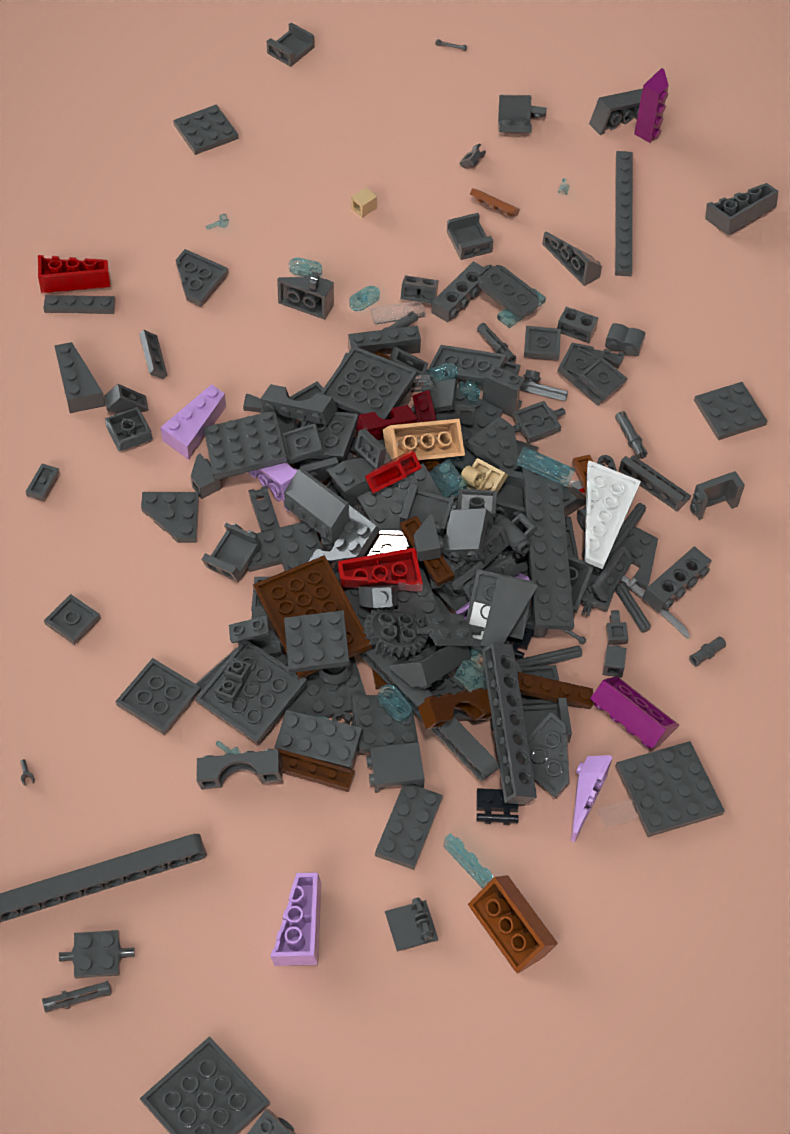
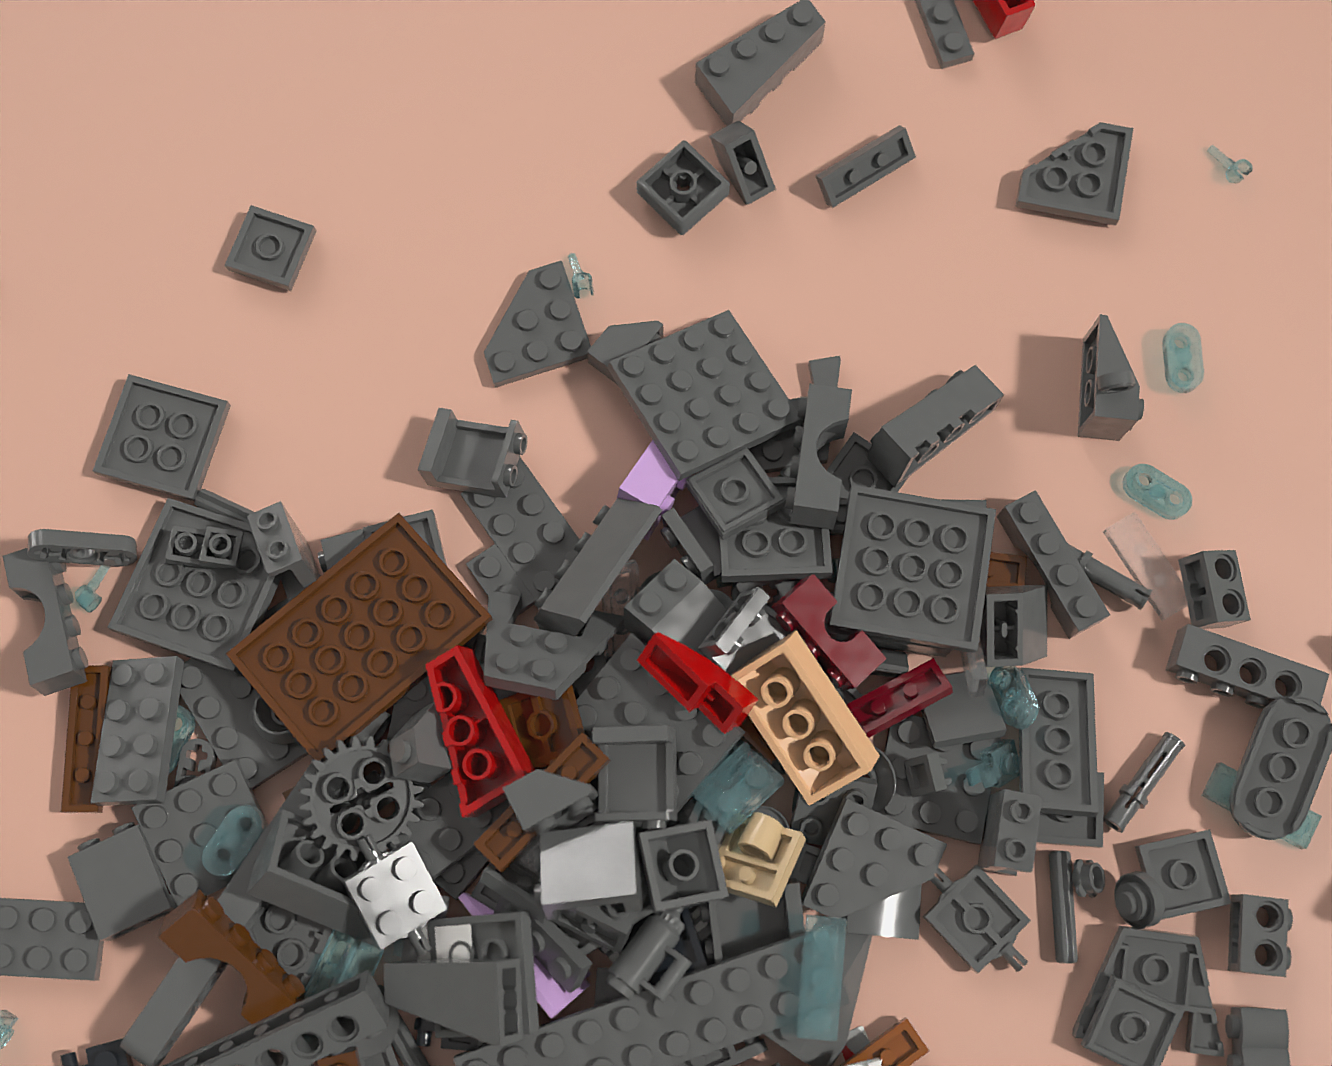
camera: 75 degrees right, 20 degrees up
(42, 482) = (527, 96): dark grey plate -> none
(158, 486) = (581, 279): none -> clear light blue hand
(187, 427) = (722, 281): lavender wedge -> none
(208, 740) = (82, 547): none -> dark grey beam
(263, 509) = (592, 478): dark grey plate -> none
(300, 364) = (933, 424): none -> dark grey wedge
(316, 641) = (296, 664): dark grey plate -> none
(548, 358) = (1139, 900): none -> dark grey plate

